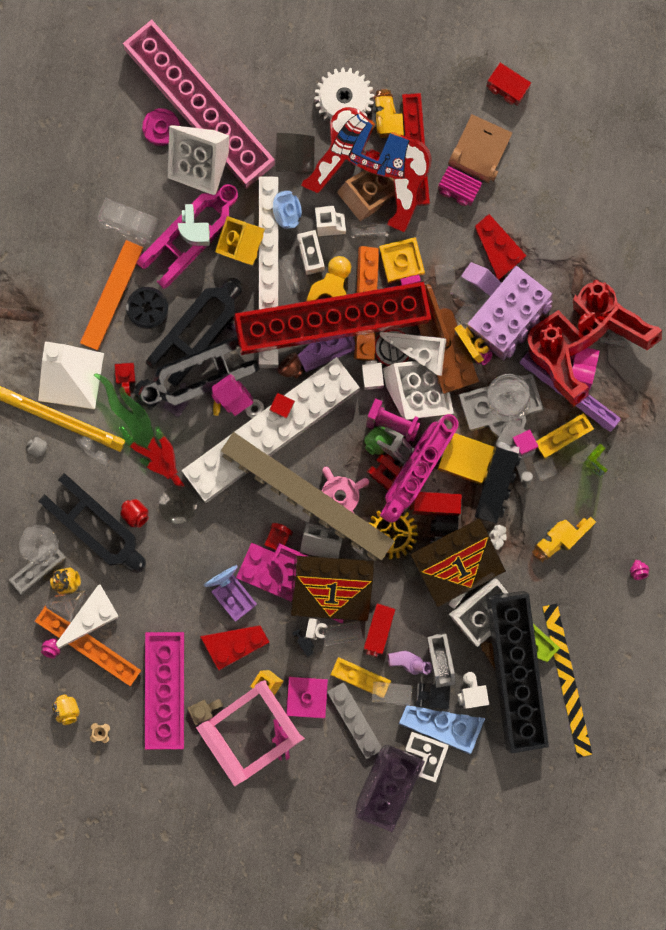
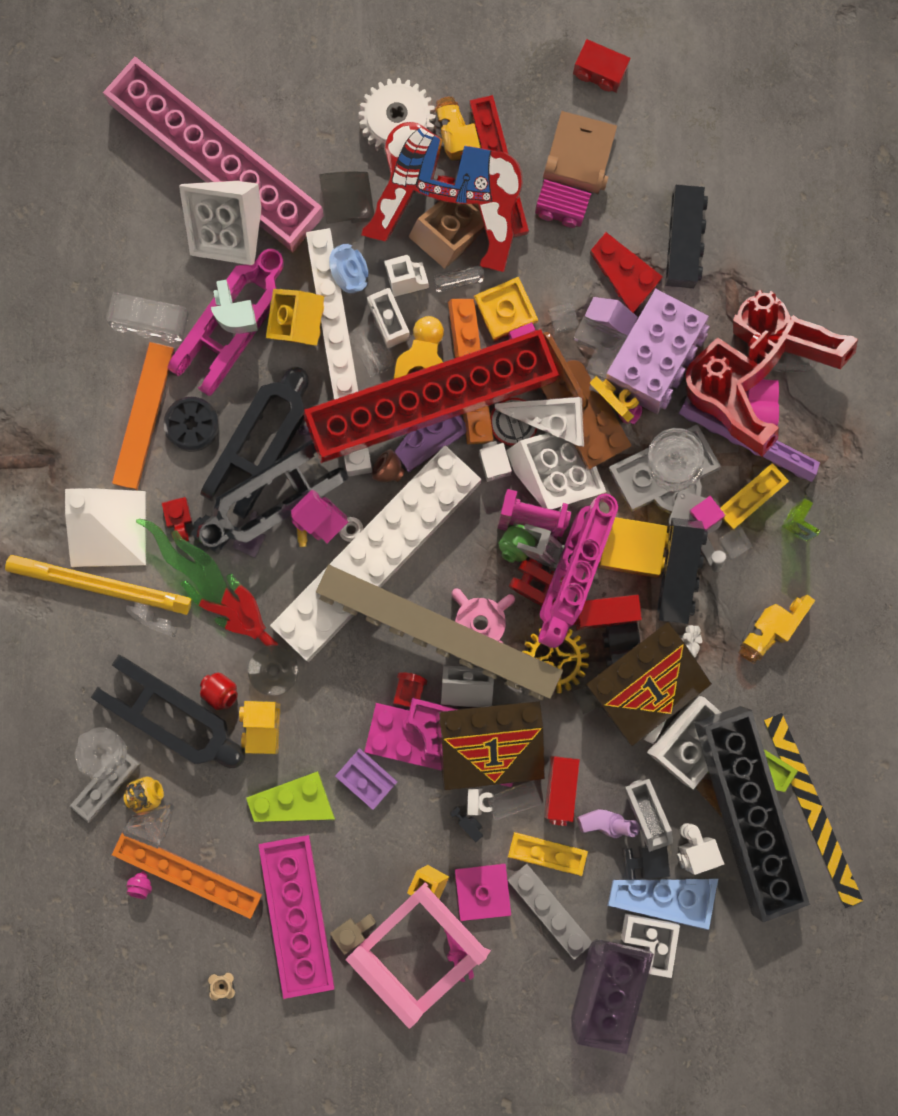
camera: 10 degrees left, 0 degrees up
(36, 447) = (78, 626): light grey piece -> none
(65, 710) = (171, 964): yellow head -> none
(93, 615) = (187, 833): white wing -> none
(157, 125) = (164, 192): dark pink tile -> none
(163, 544) = (261, 726): none -> yellow brick
(176, 605) = (292, 801): none -> lime wing
(222, 579) = (346, 756): light blue dish -> none
(233, 645) = (376, 840): red wing -> none
(282, 405) = (385, 519): red tile -> none
(391, 693) = (592, 868): clear tile -> none
(549, 228) = (685, 236): none -> black brick
(639, 570) = (880, 652): dark pink plate -> none

